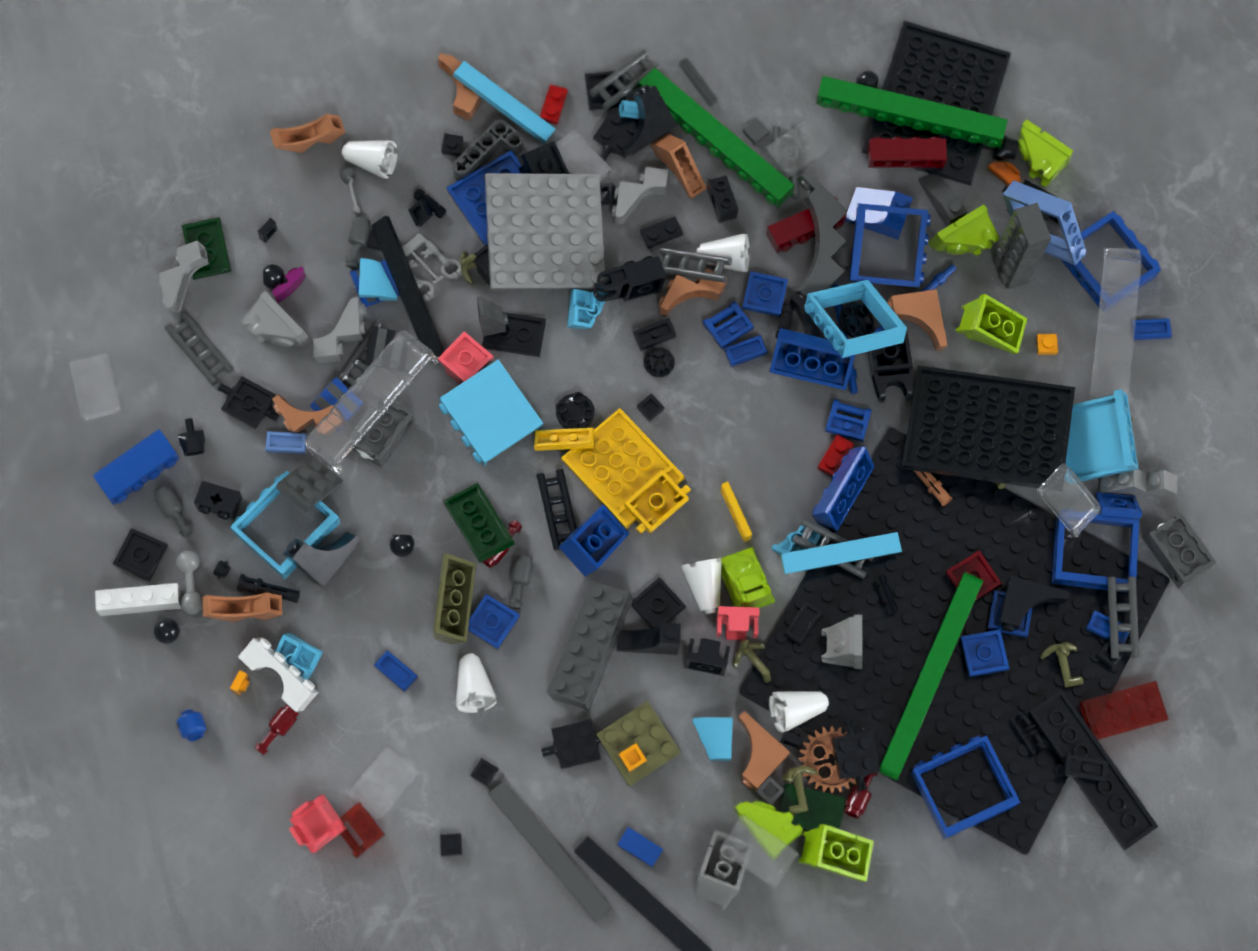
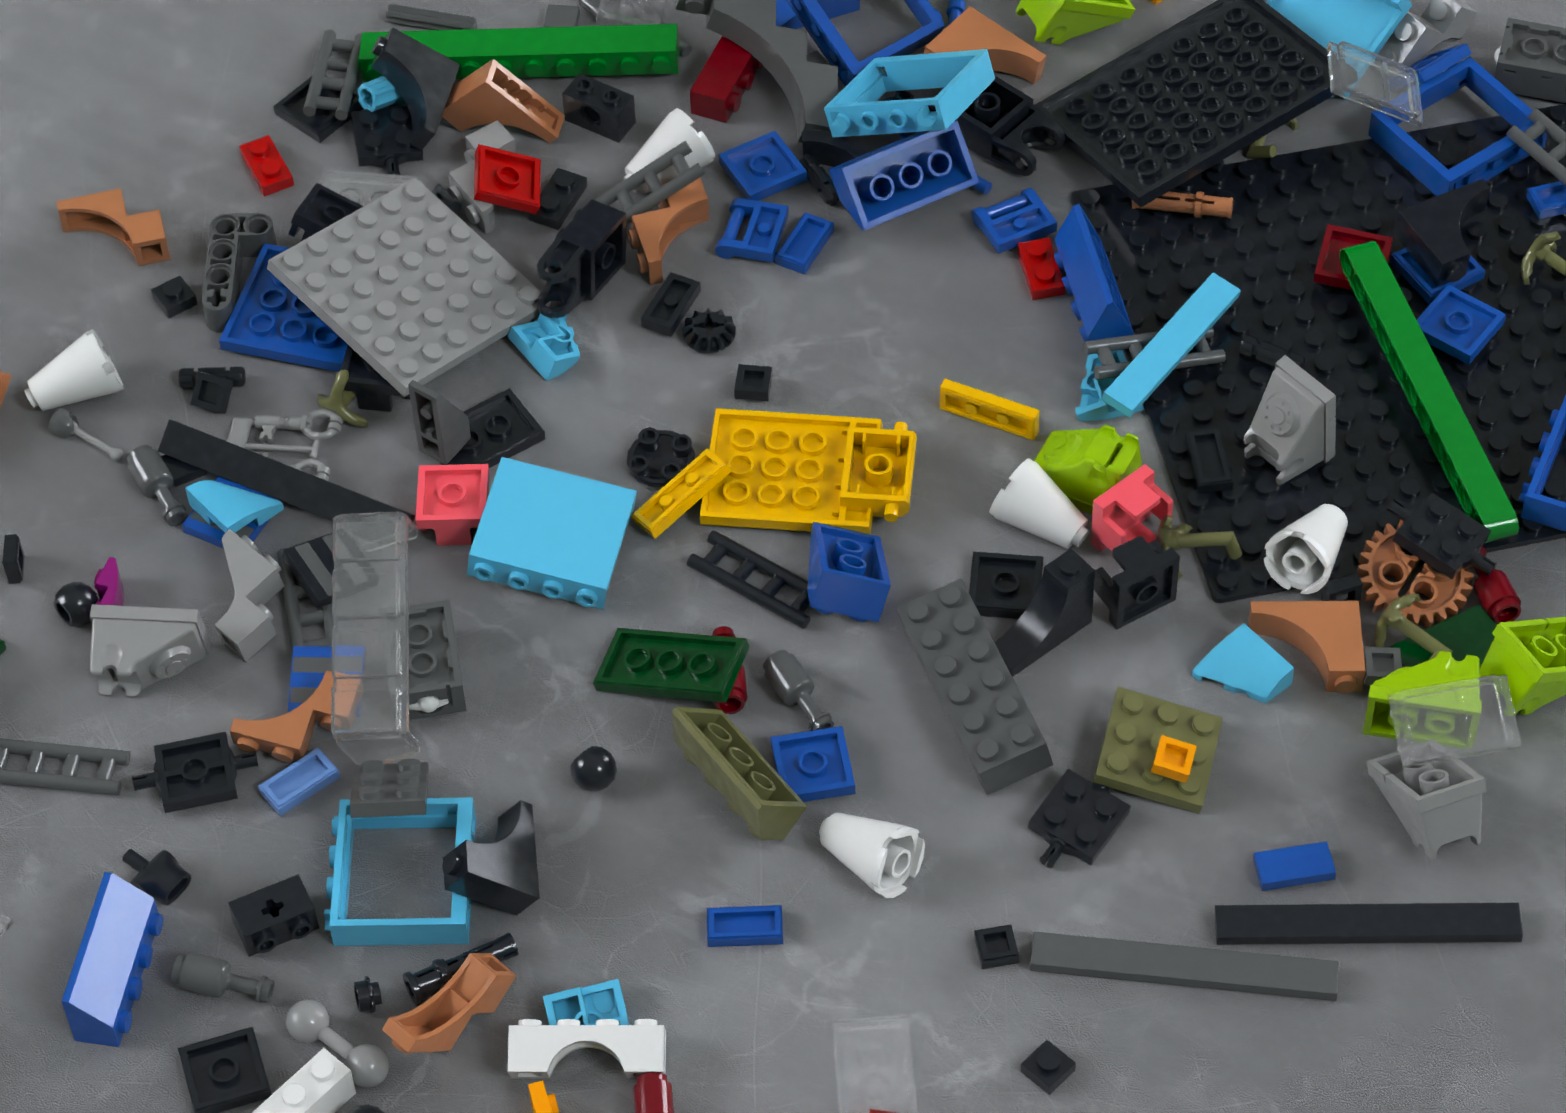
camera: 35 degrees left, 20 degrees down
(504, 102) = (199, 197): medium azure tile -> none
(642, 207) = (507, 179): none -> red tile

